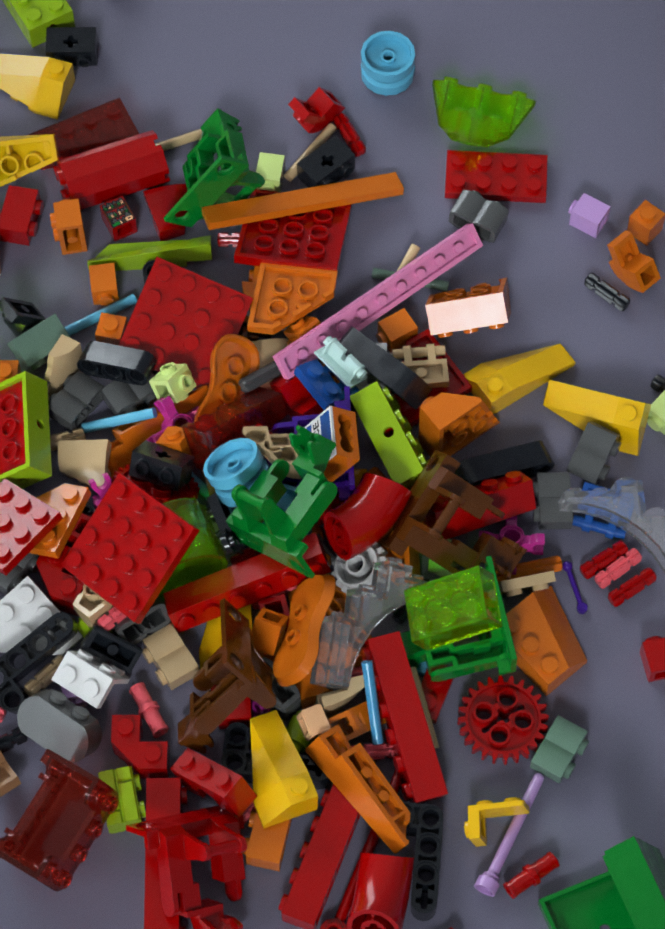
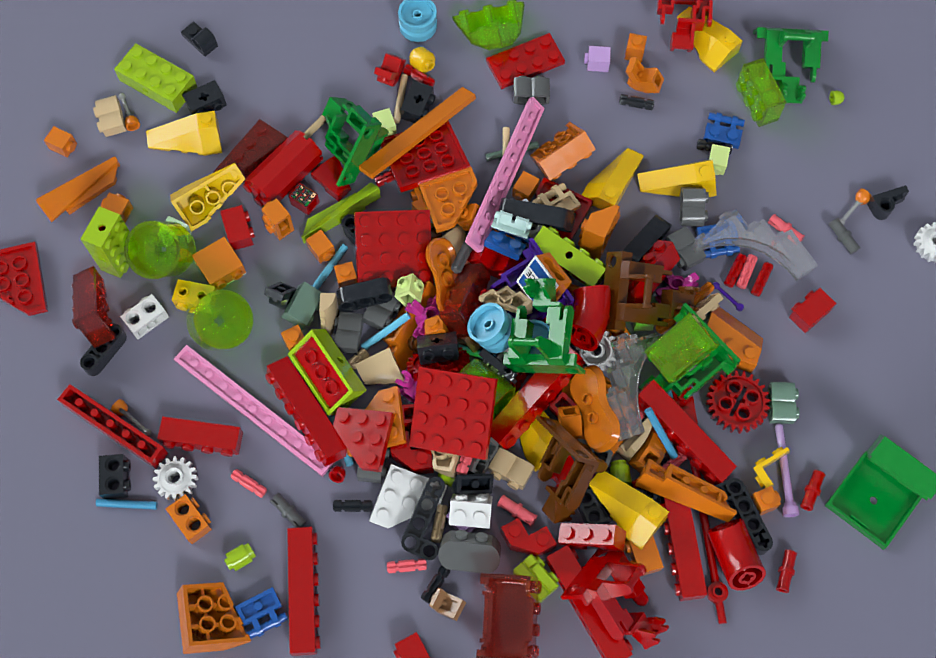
camera: 30 degrees left, 5 degrees up
(313, 722) = (631, 465): light nougat slope -> none
(363, 114) = (422, 59): none -> yellow head
(460, 855) = (766, 500): none -> orange brick

